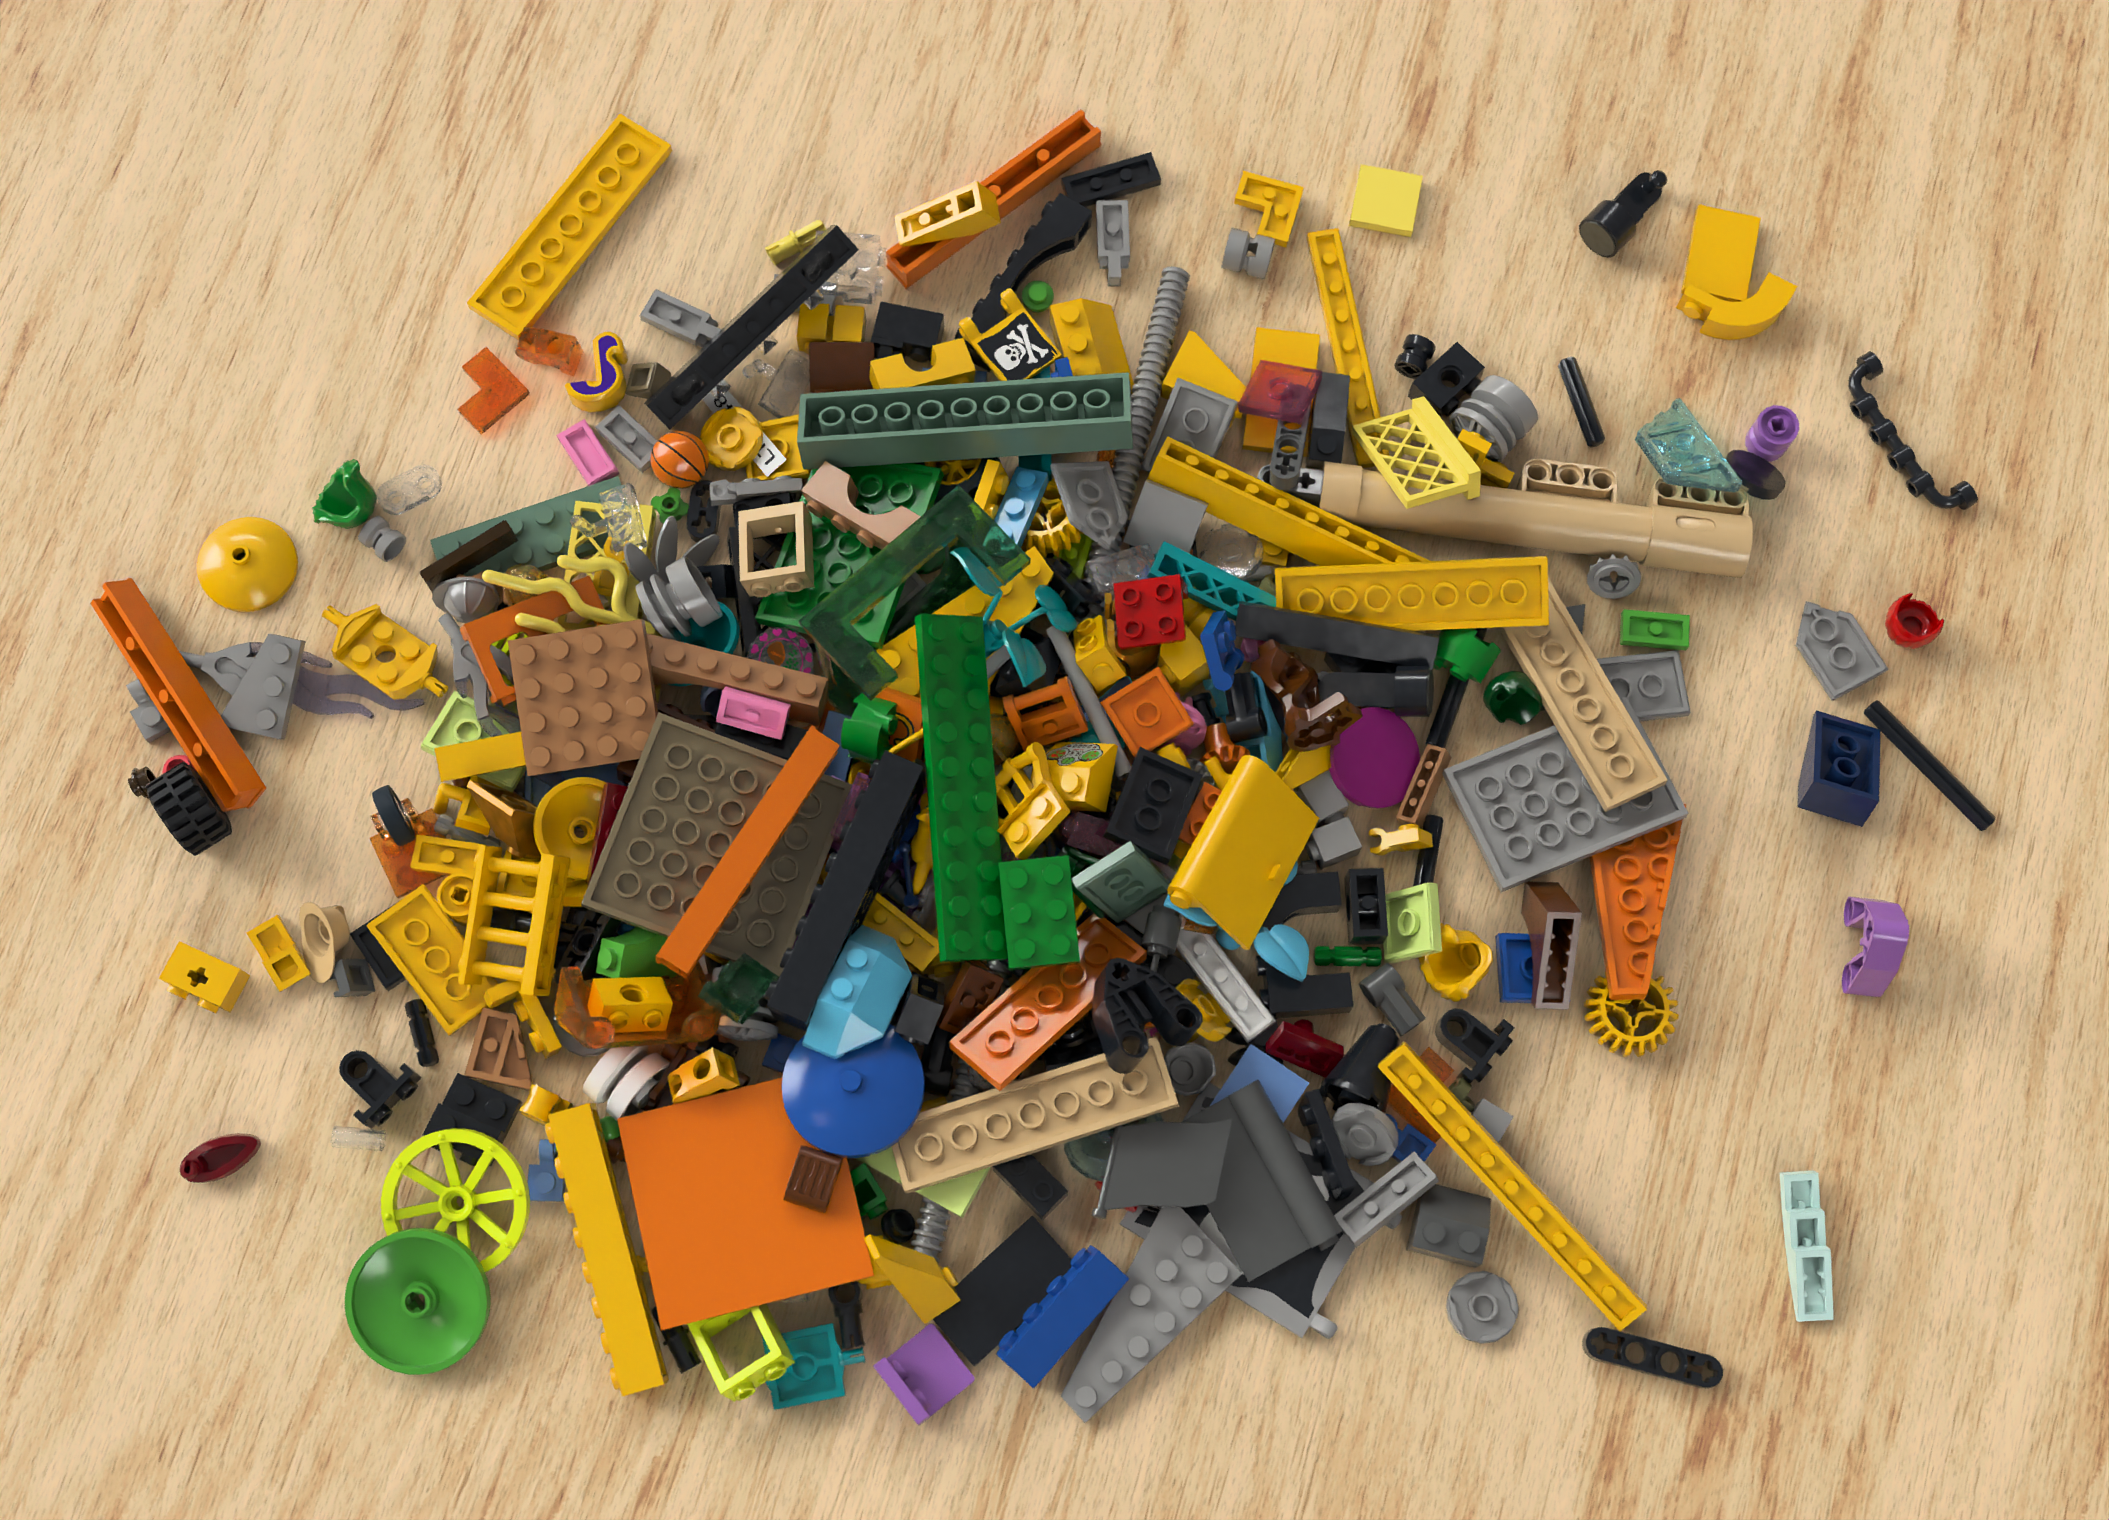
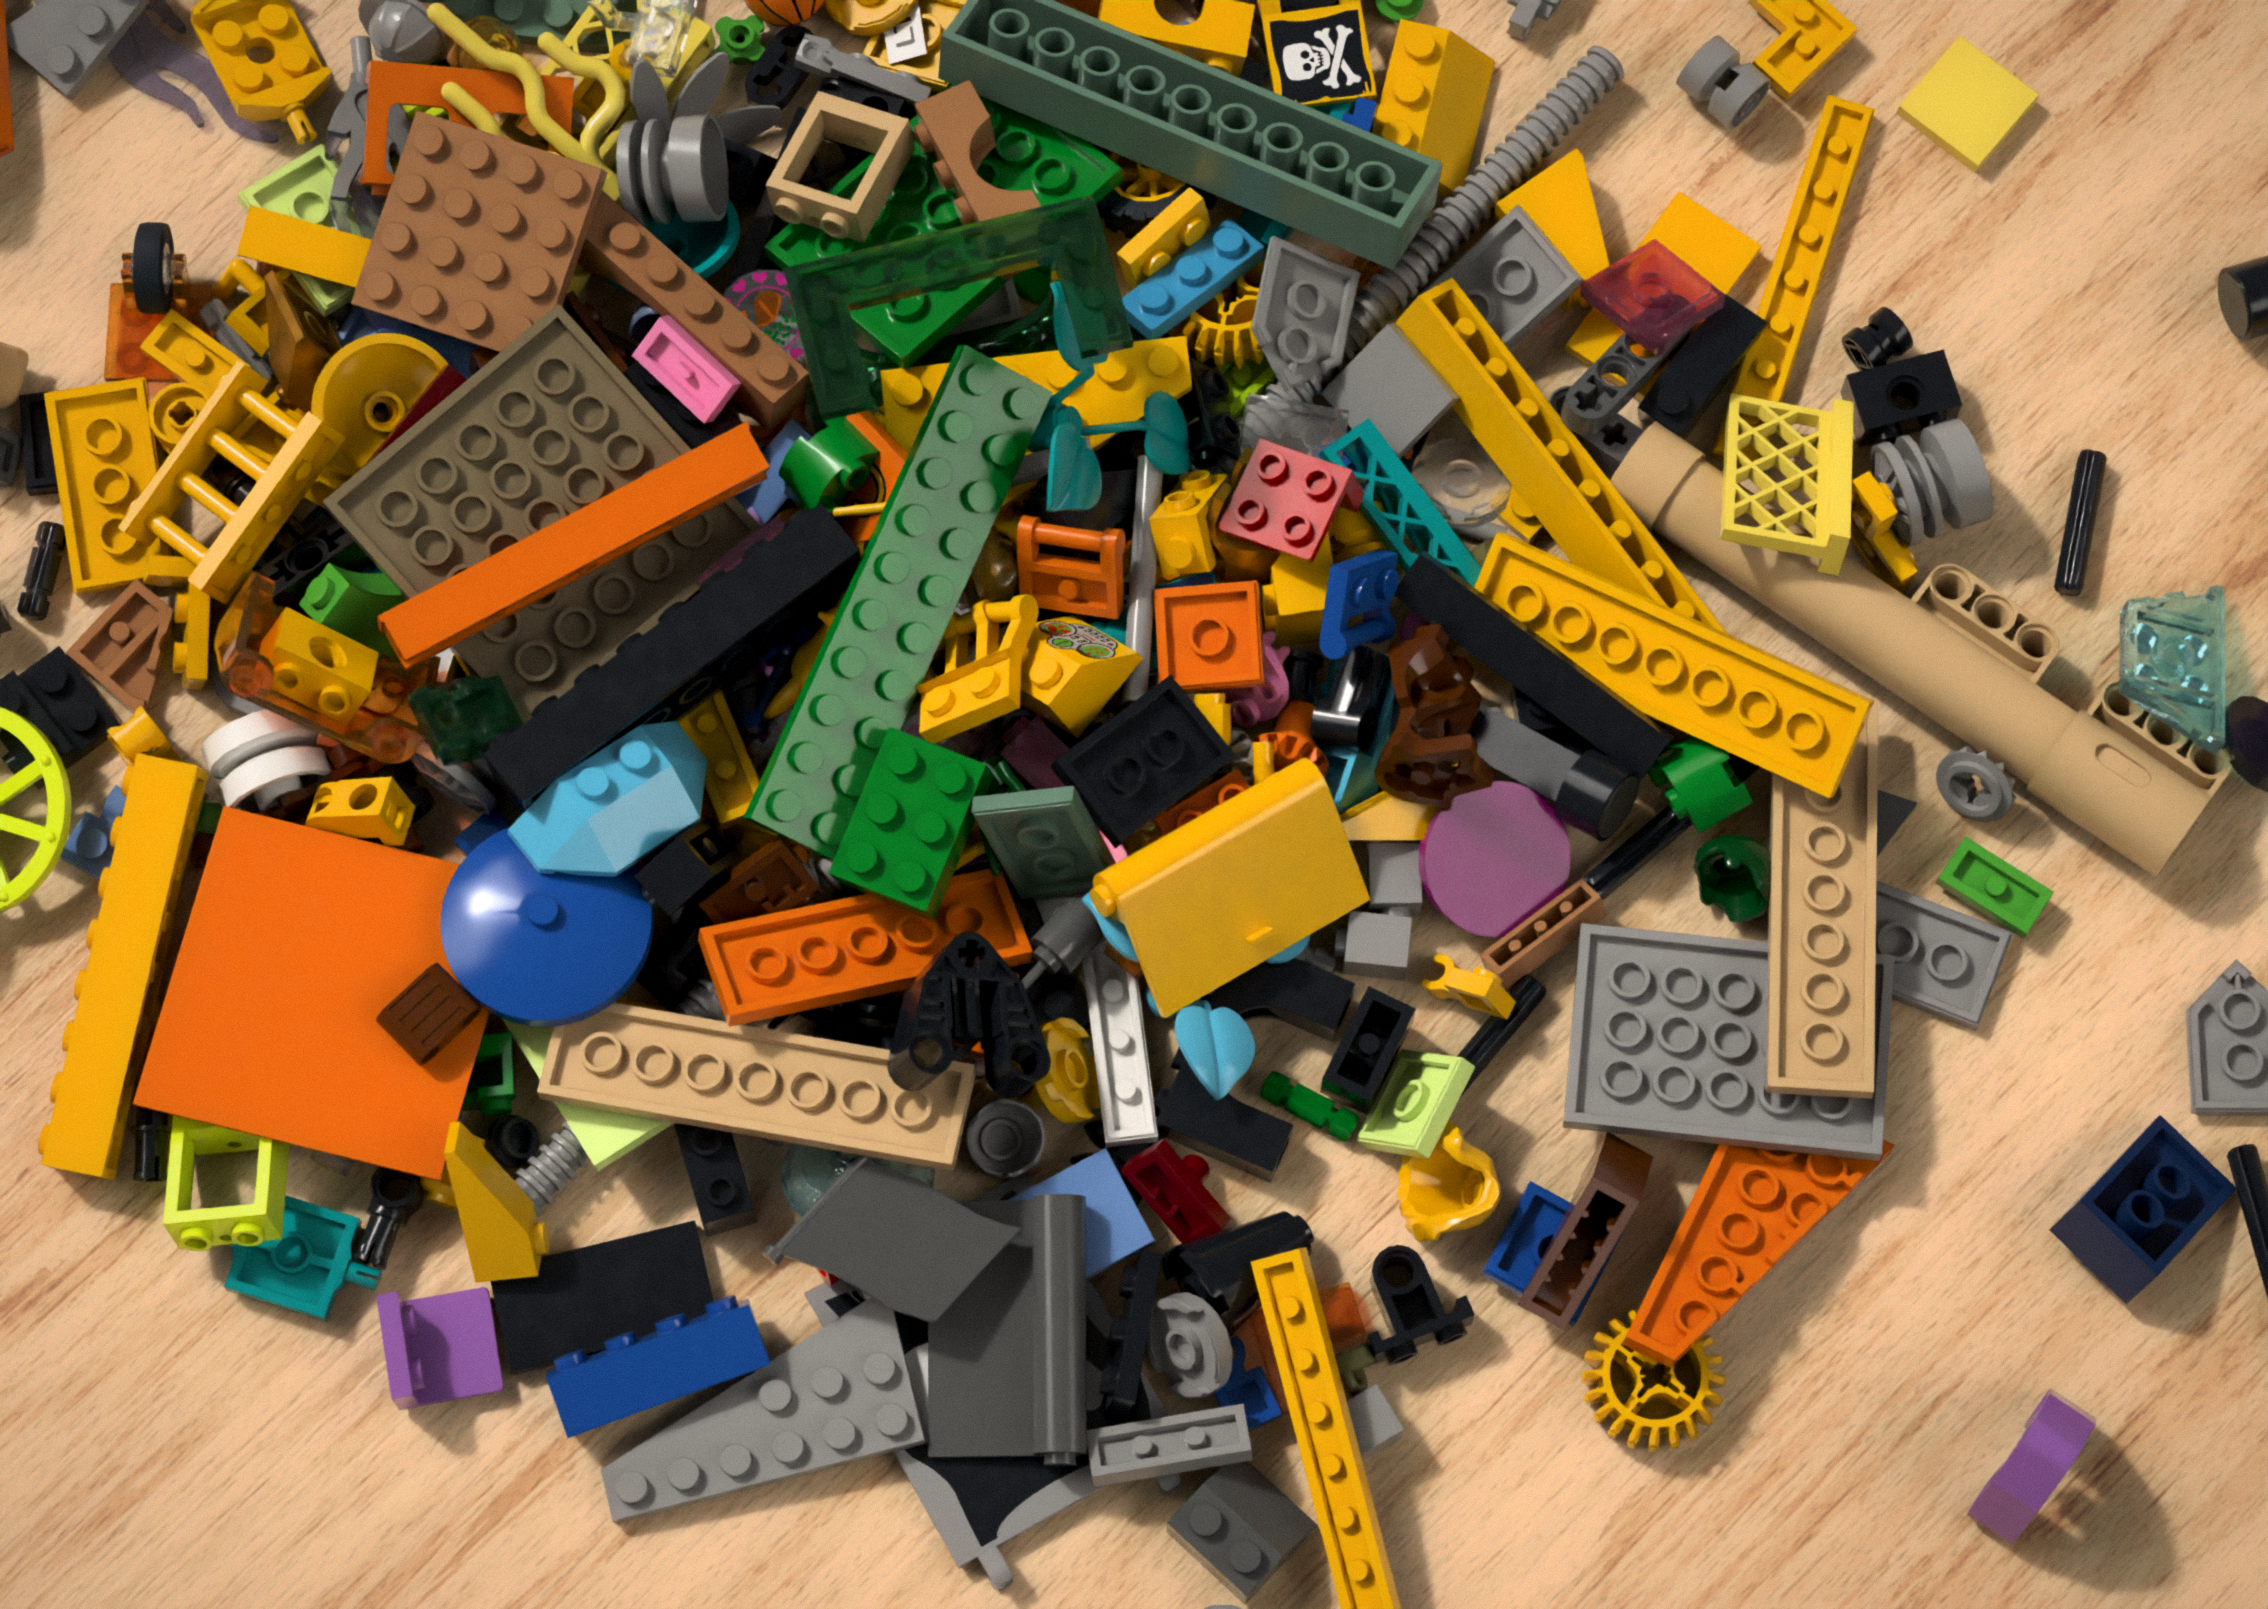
camera: 30 degrees right, 0 degrees up
(1387, 991) = (1334, 1181): dark grey piece -> none

